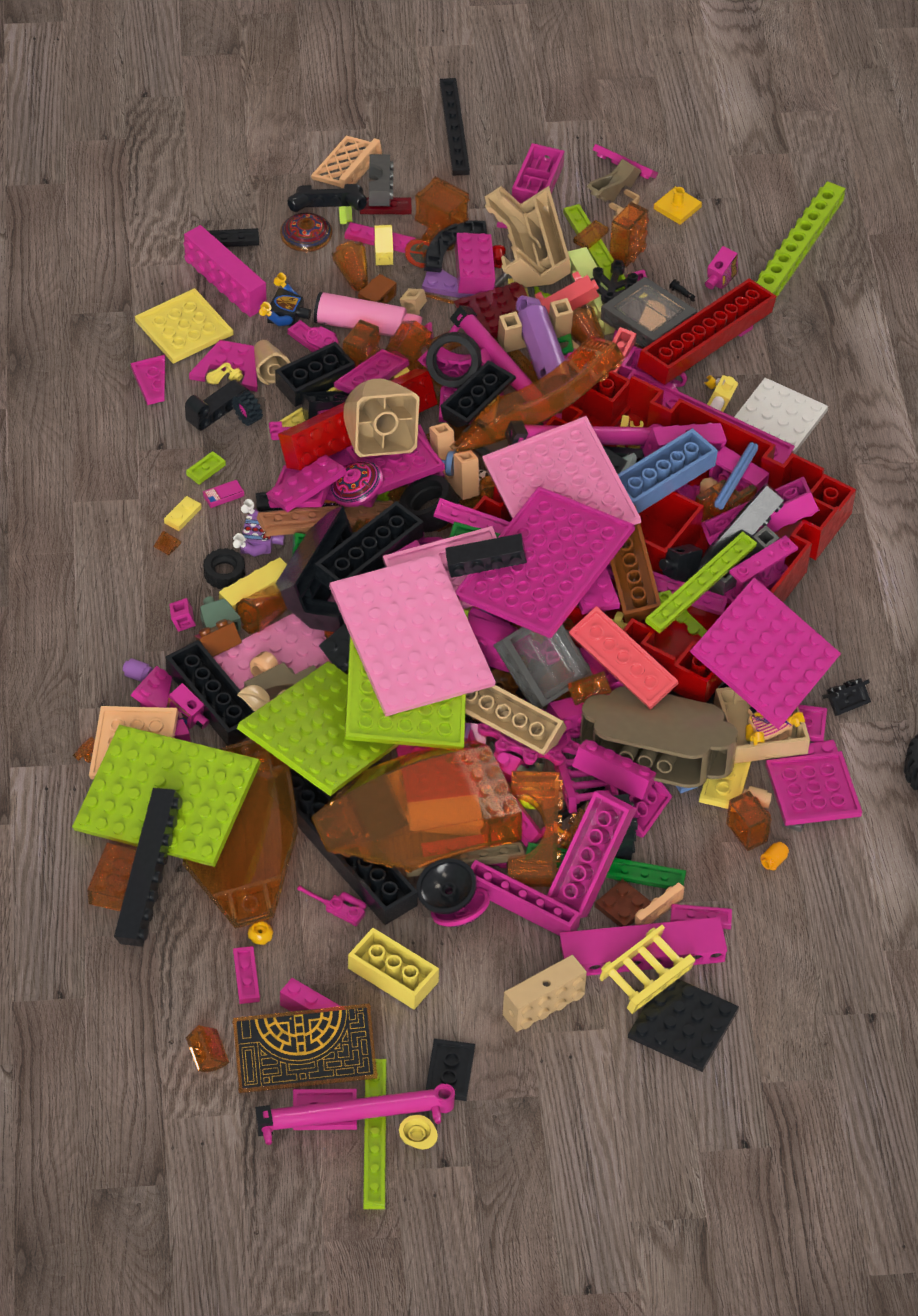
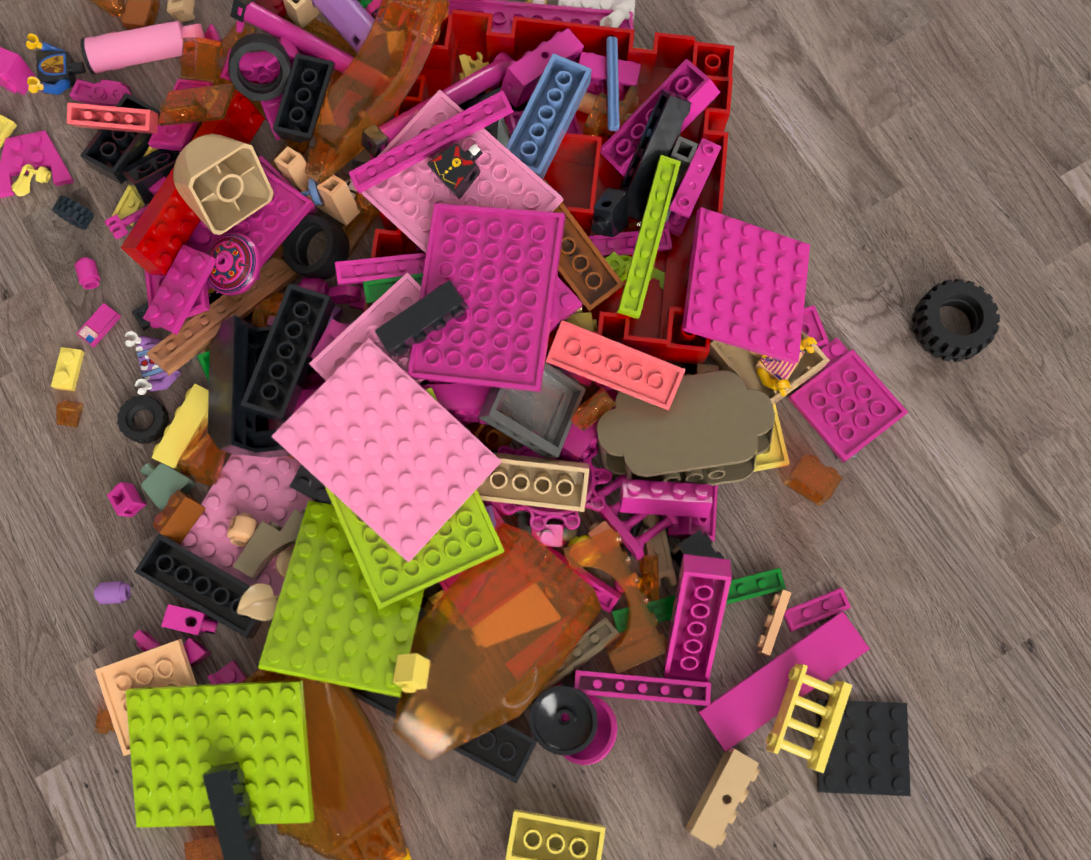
camera: 25 degrees left, 25 degrees up
(154, 689) = (142, 616): dark pink wing -> none
(205, 467) = (65, 303): lime plate -> none
(207, 411) = (38, 223): black beam -> none
(234, 454) = (87, 273): none -> dark pink brick
(267, 360) = (67, 144): tan cone -> none
(317, 352) = (112, 118): none -> coral brick
(337, 907) = (462, 786): dark pink piece -> none
(348, 779) = (411, 672): none -> light yellow brick
(362, 342) = (153, 81): clear orange brick -> none
(387, 367) = (196, 104): none -> clear orange bracket
(559, 446) = (431, 141): none -> dark pink plate
(569, 469) = (457, 168): none -> black torso
(622, 903) = (739, 634): copper plate -> none
(762, 794) = (801, 443): tan brick -> none
(774, 855) = (851, 504): light orange brick -> none
(781, 441) = (615, 19): none -> white piece
(848, 696) = (826, 279): black bracket -> none

